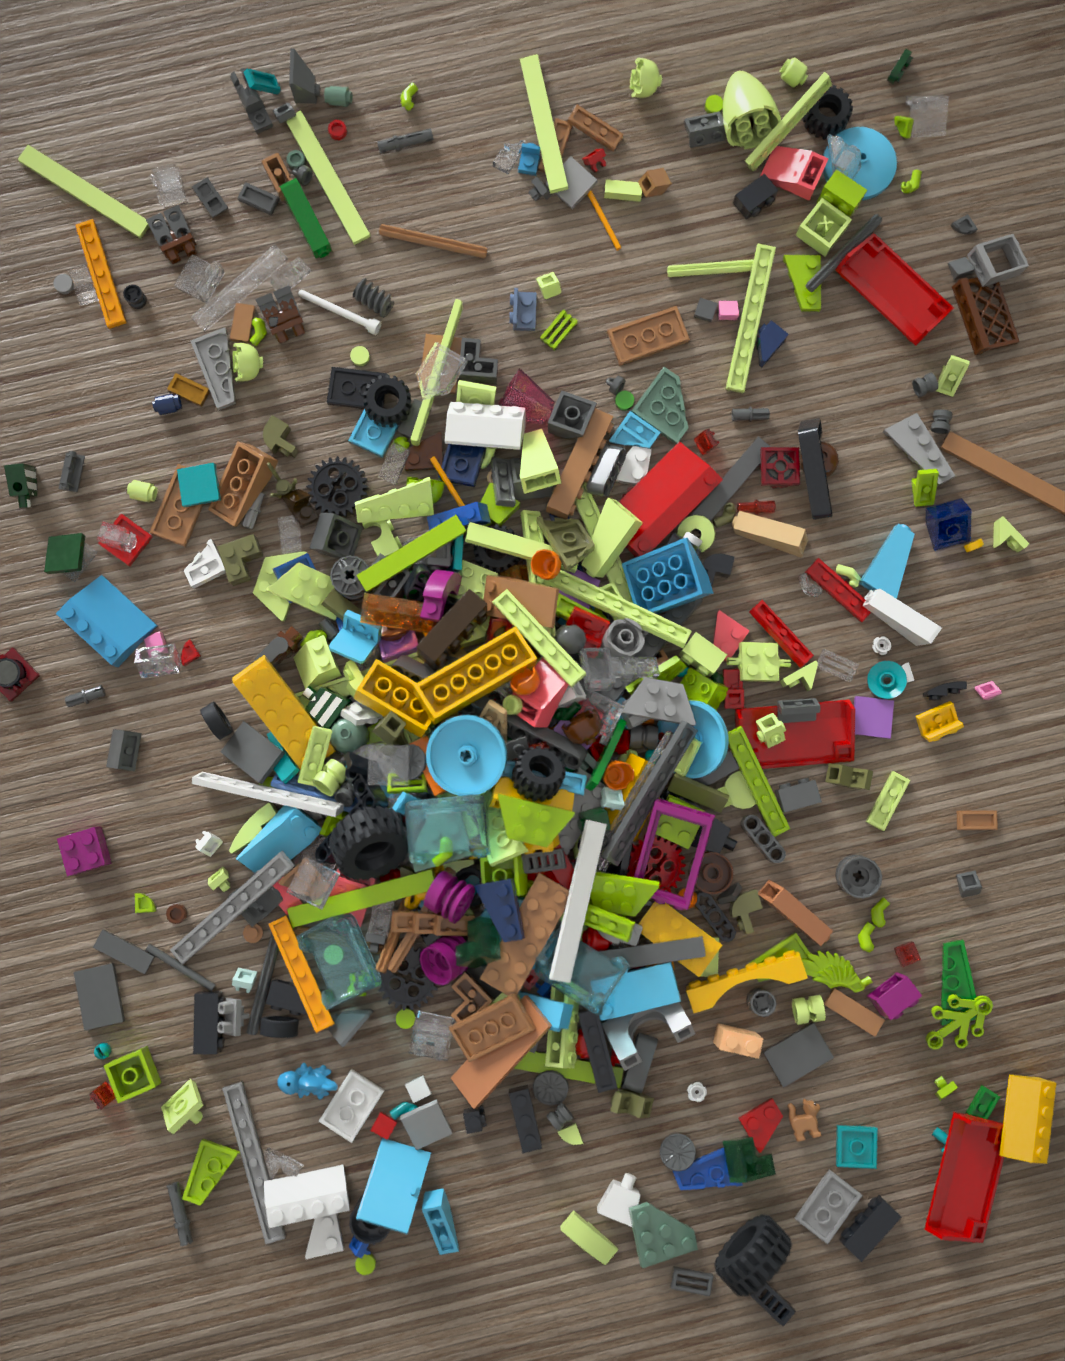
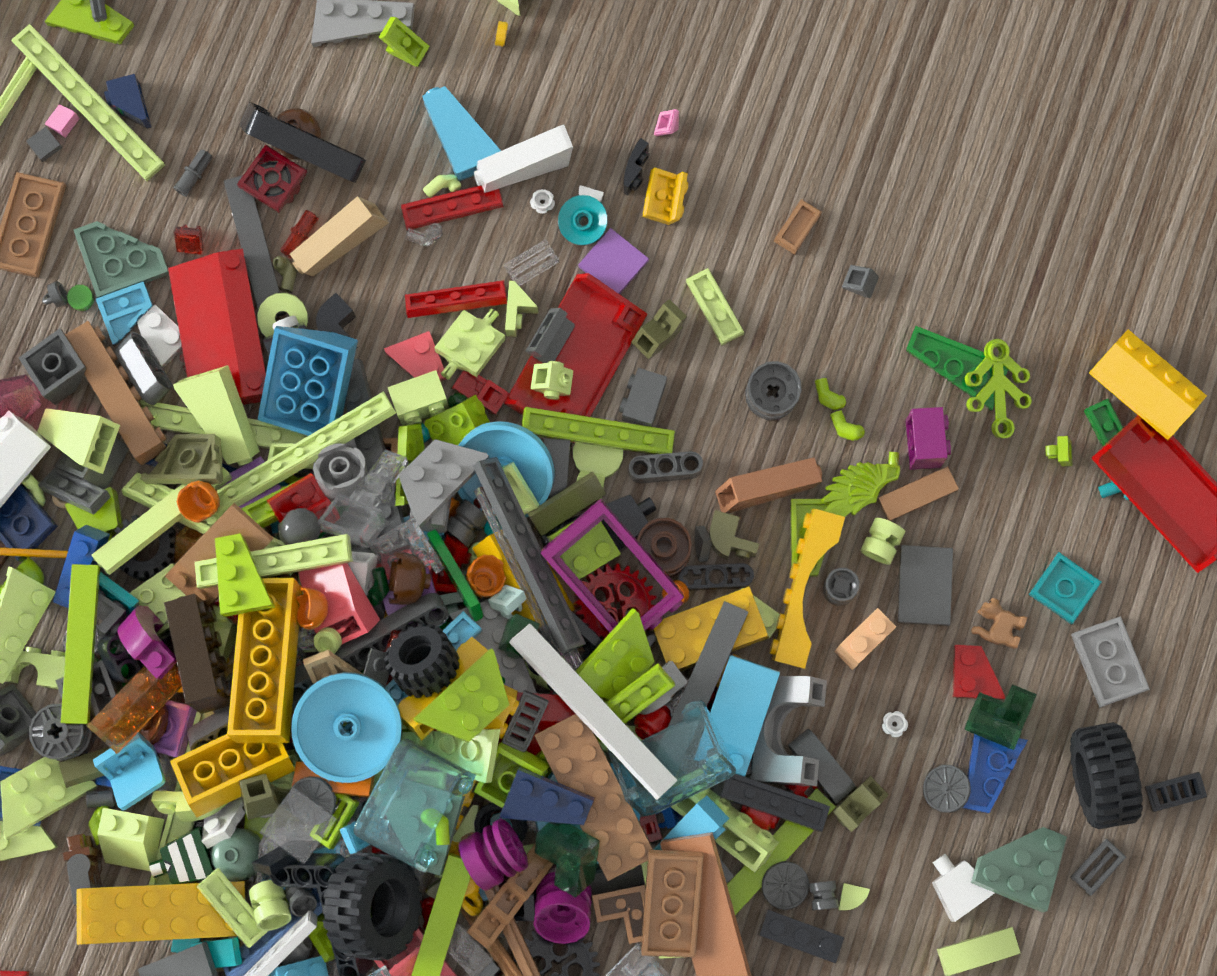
camera: 50 degrees left, 5 degrees down
(512, 626) = (238, 578): none -> lime wing
(869, 1227) = (1159, 631): black brick -> none
(907, 954) = (892, 395): clear red tile -> none
(949, 524) = (460, 44): clear blue slope -> none

